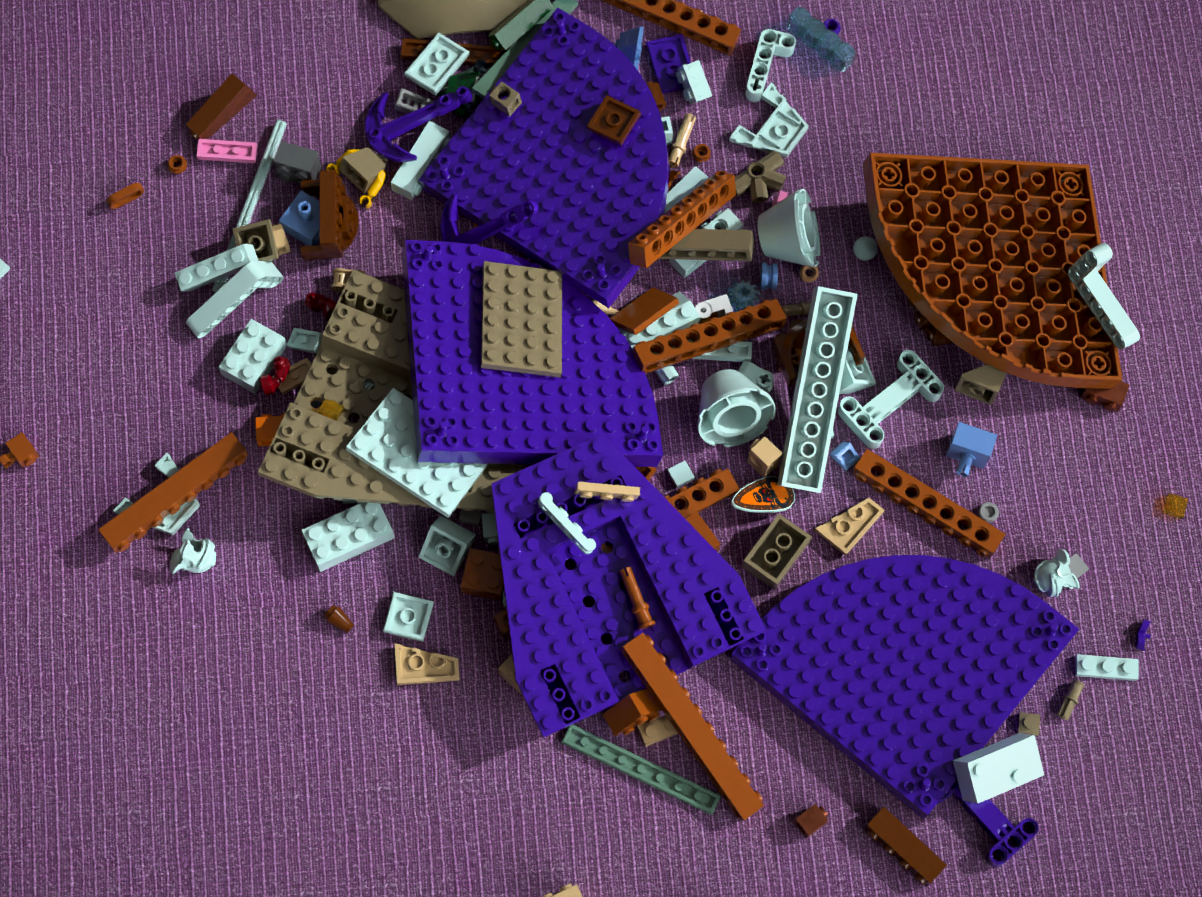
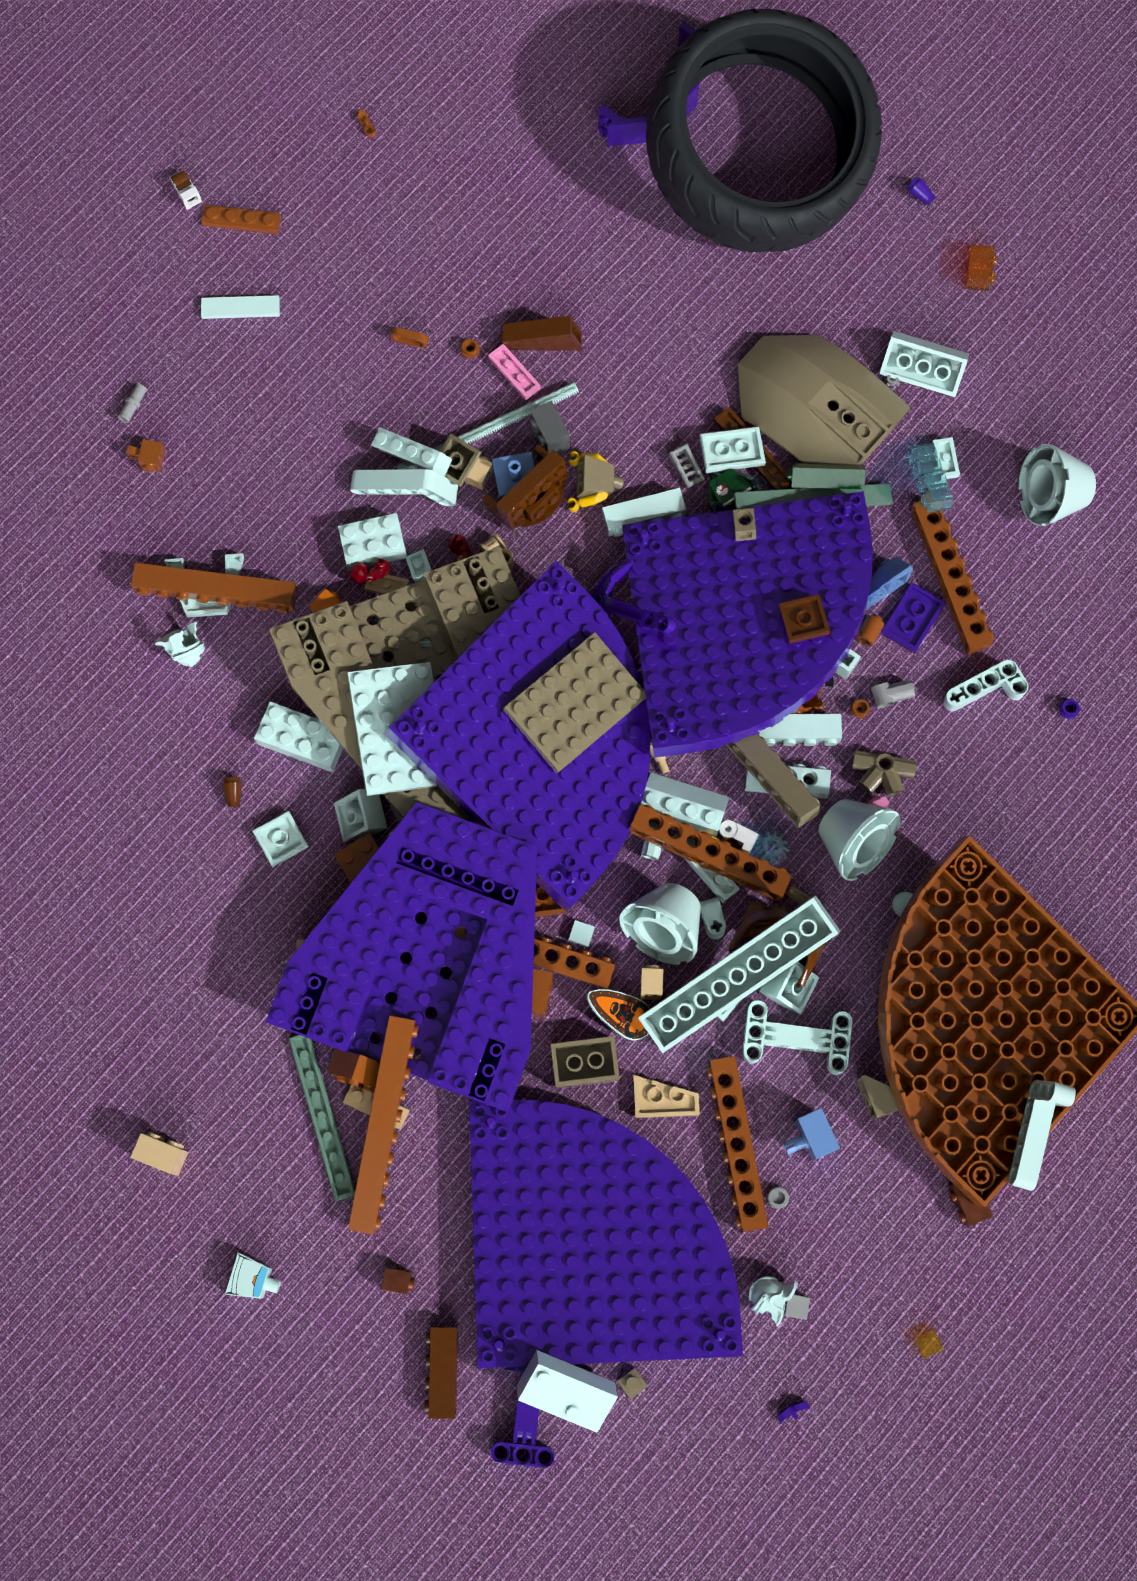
camera: 55 degrees right, 5 degrees up
(331, 409) = (374, 635): clear yellow plate -> none
(381, 134) = (635, 464): dark purple piece -> none
(424, 667) = (252, 884): tan wing -> none
(571, 530) = (436, 877): light aqua plate -> none
(607, 491) = (490, 892): tan plate -> none
(639, 608) = (434, 1001): dark orange pin -> none
(644, 311) = (682, 785): dark orange tile -> none
(678, 147) = (847, 687): tan pin -> none
(681, 219) = (778, 744): dark orange brick -> none
(694, 82) = (912, 648): light aqua bracket -> none
(709, 127) = (886, 694): none -> light grey piece
(768, 276) = (806, 852): medium blue wheel -> none
(779, 132) = (940, 750): light aqua wing -> none
(815, 272) = (835, 881): medium nougat plate -> none
(820, 38) = (1051, 714): clear light blue brick -> none
(845, 455) = (717, 1044): light blue slope -> none
(1070, 699) = (682, 1399): dark tan axle -> none
(1106, 667) = (738, 1406): light aqua plate -> none

